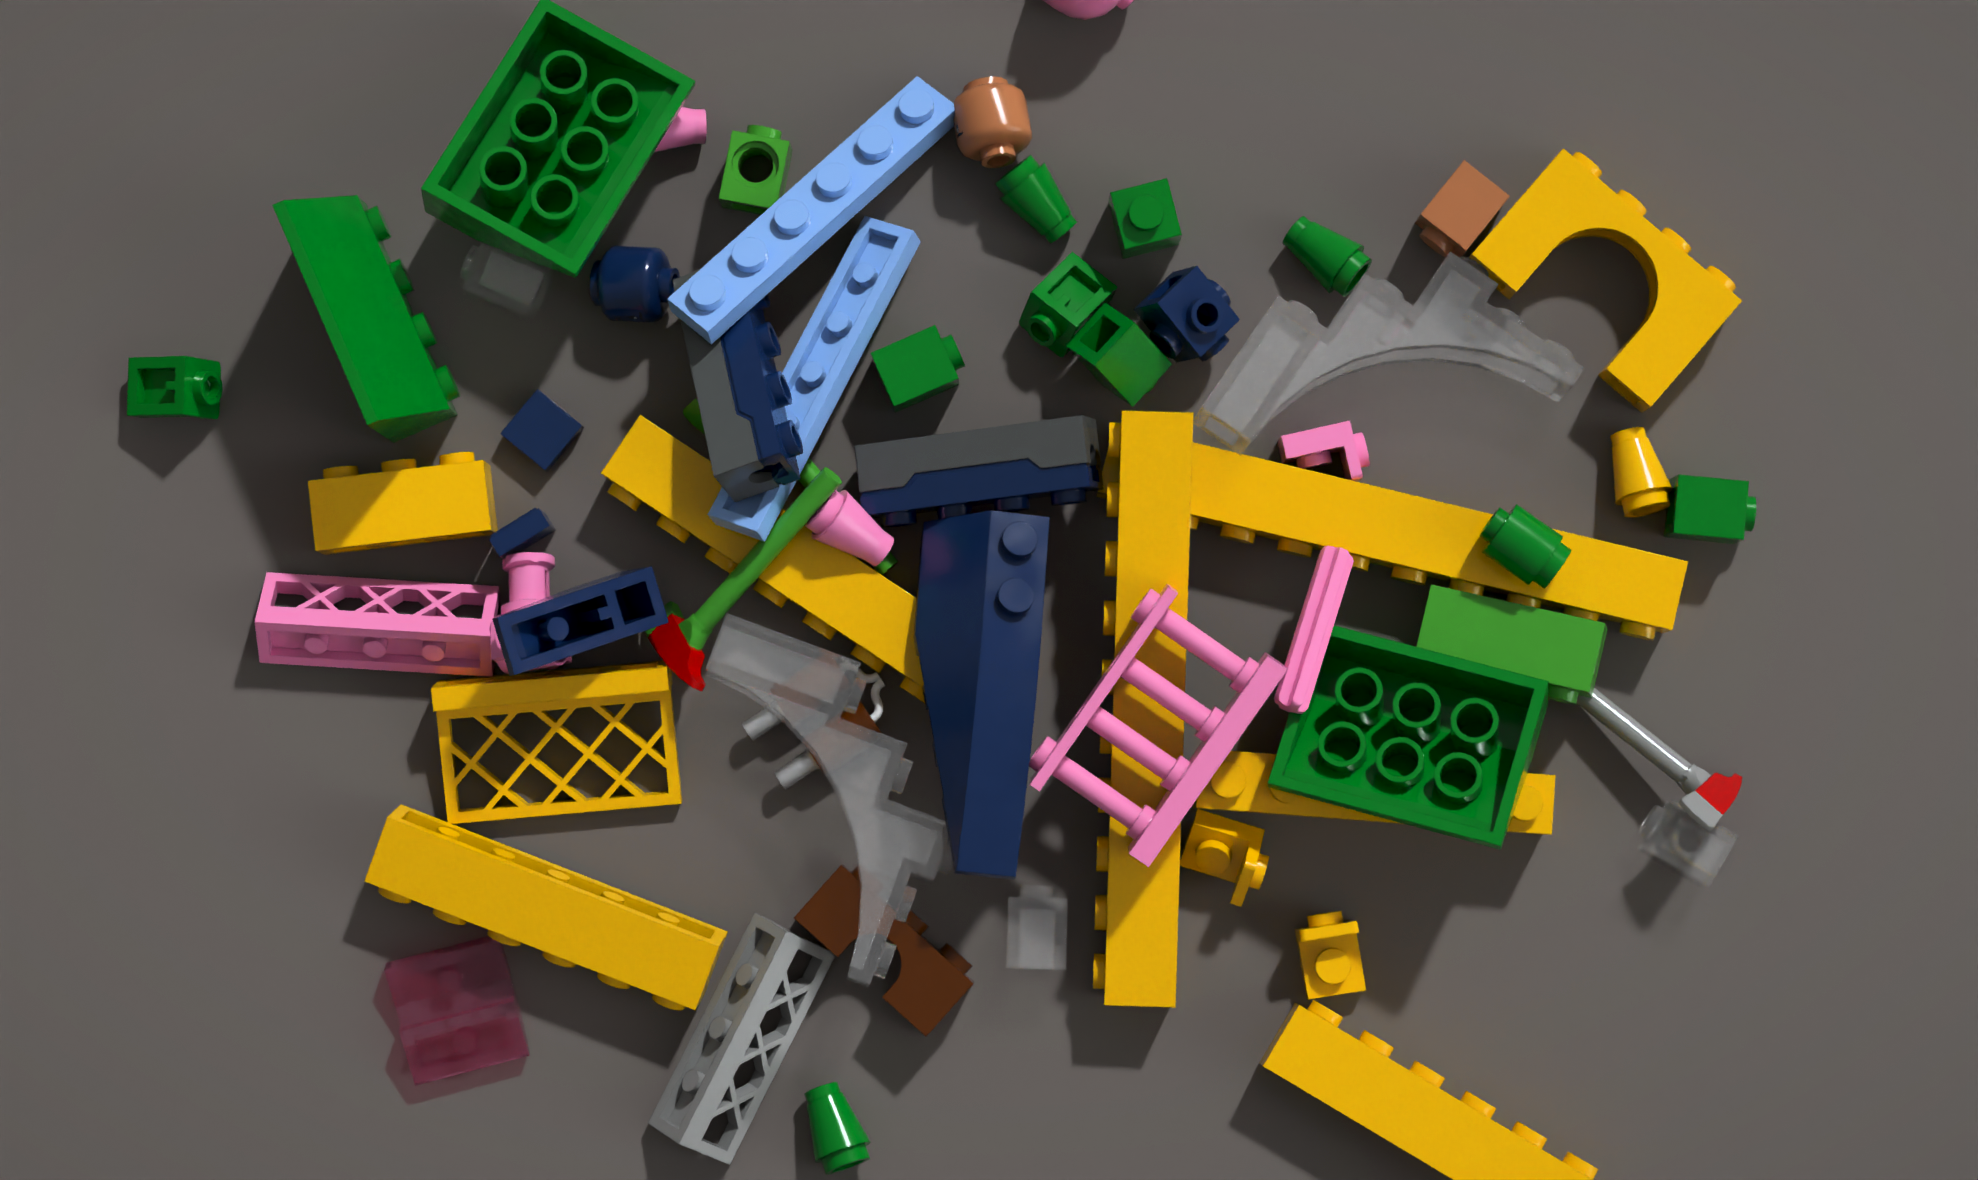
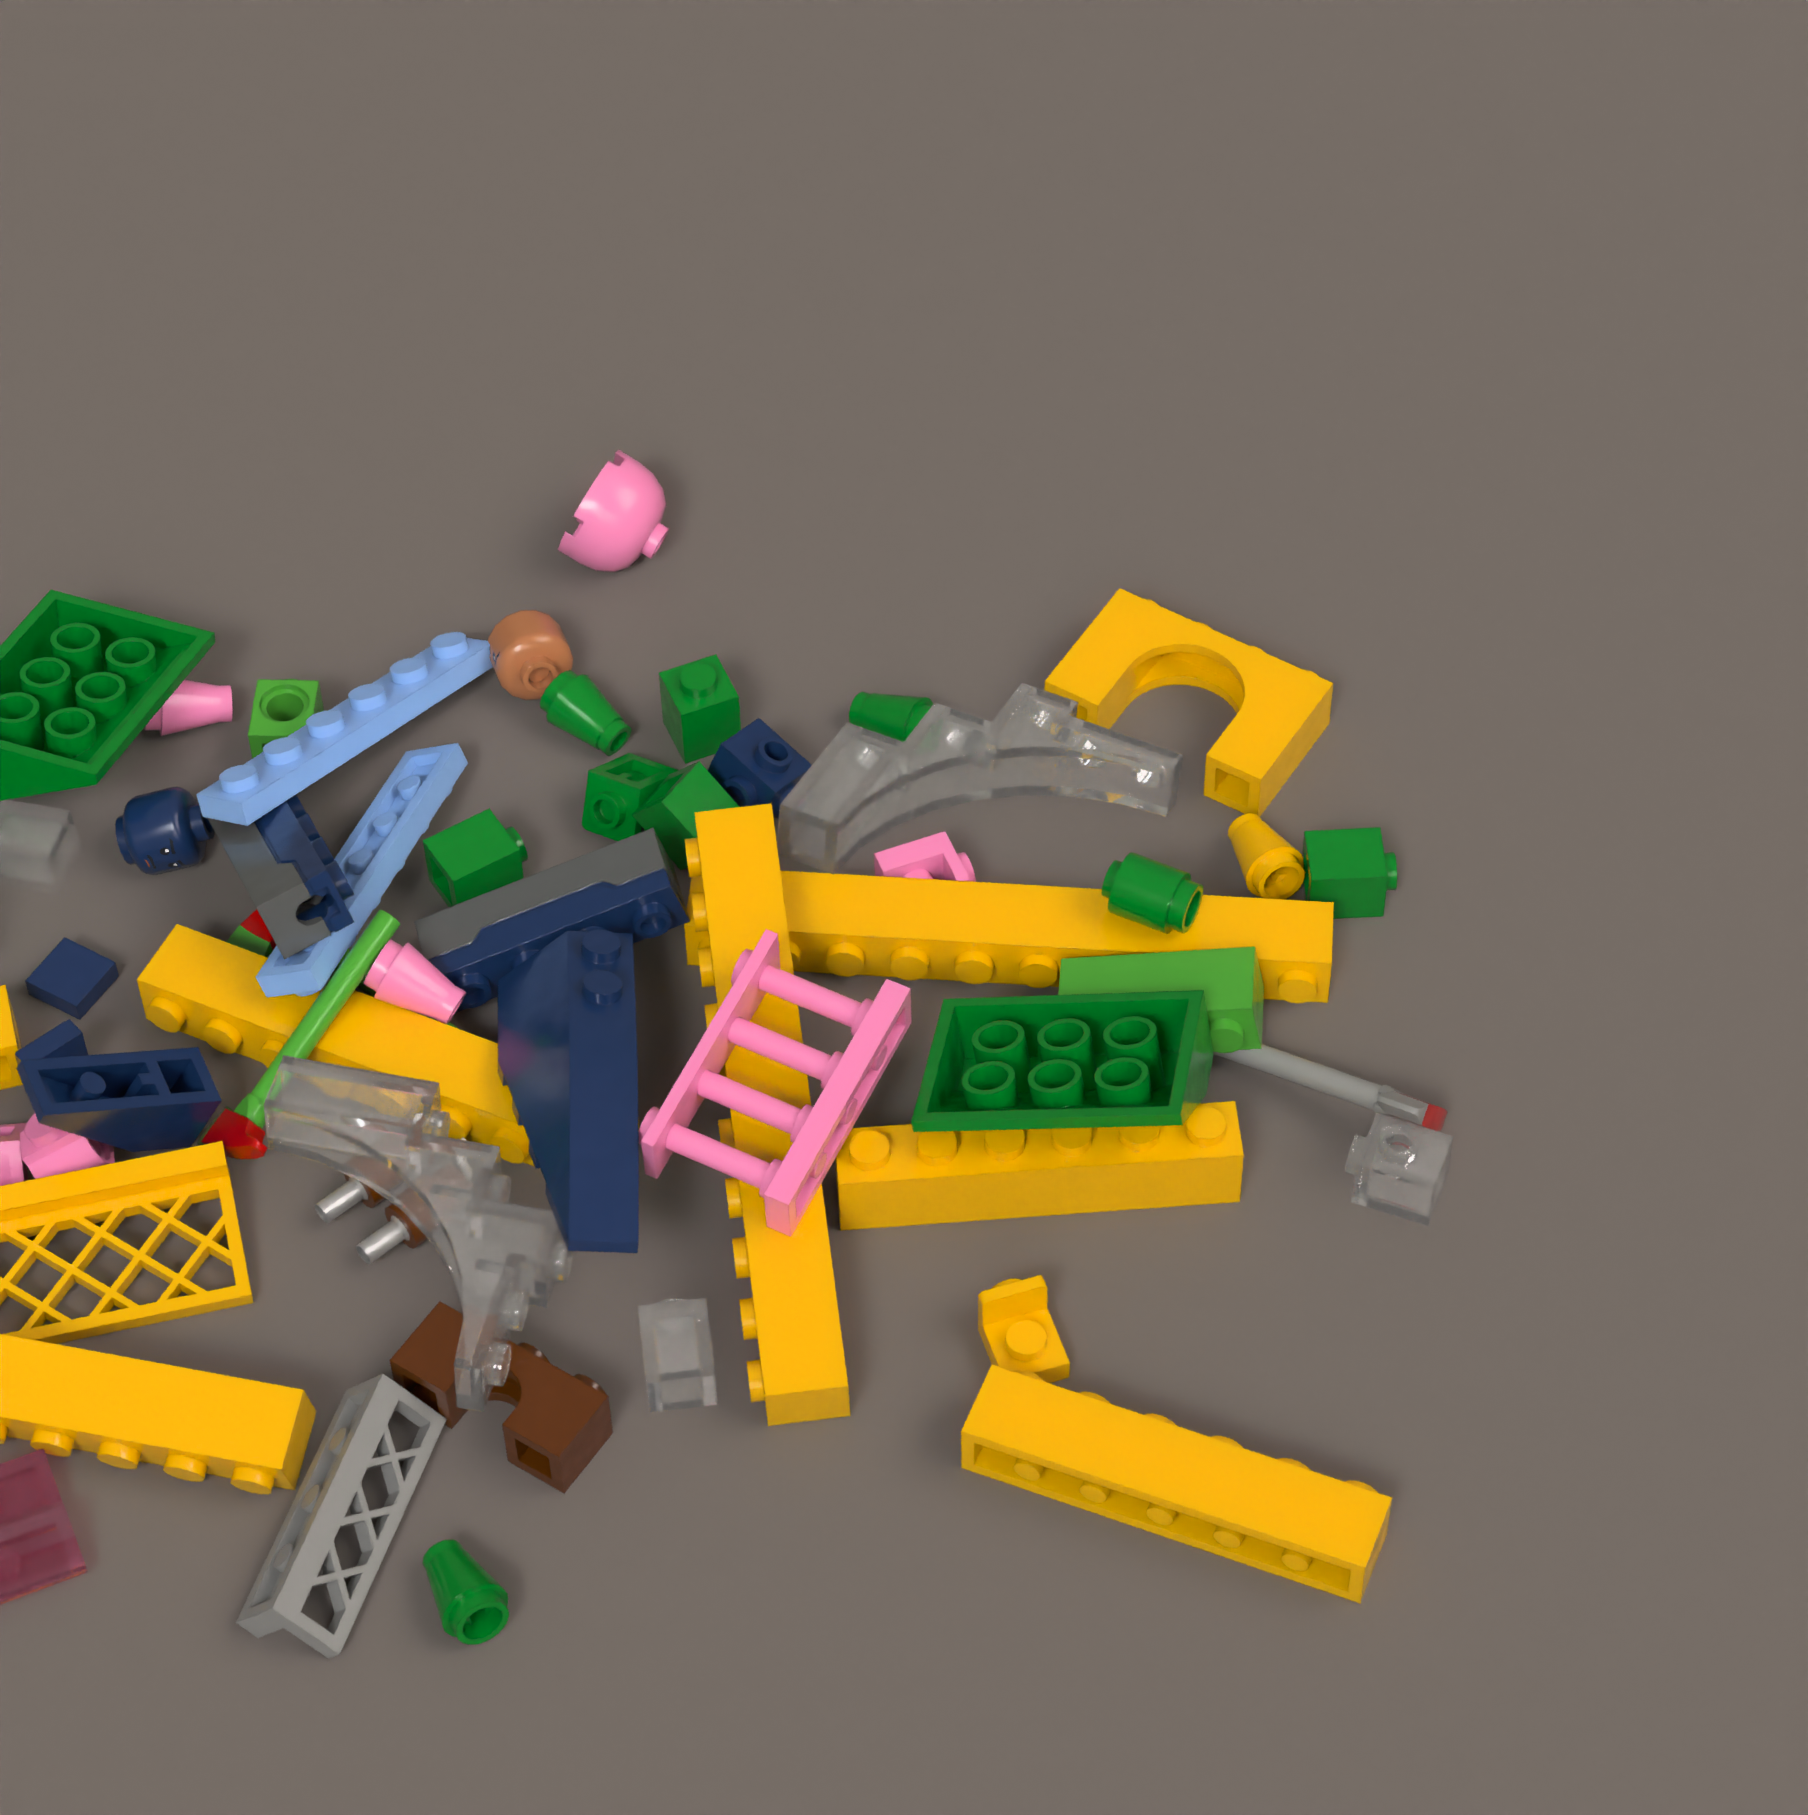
camera: 10 degrees left, 35 degrees down
(1226, 852) = (881, 1246): yellow bracket -> none
(1314, 629) = (938, 997): bright pink axle -> none
(1460, 211) = (1024, 654): nougat brick -> none

